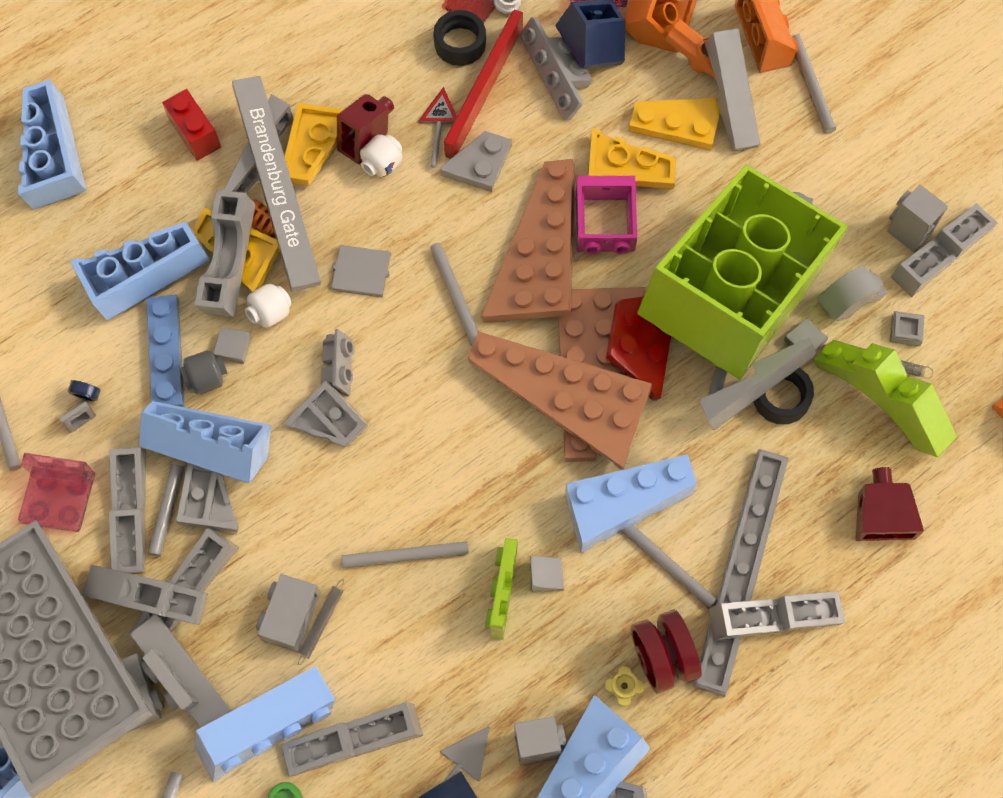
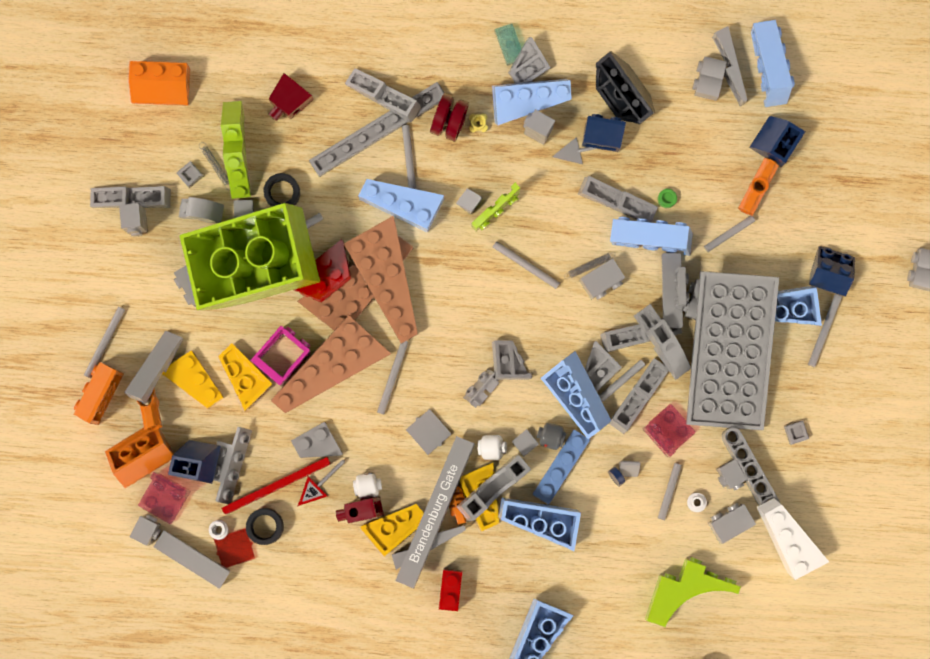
camera: 145 degrees left, 15 degrees up
(769, 371) = (318, 206): light grey slope -> none

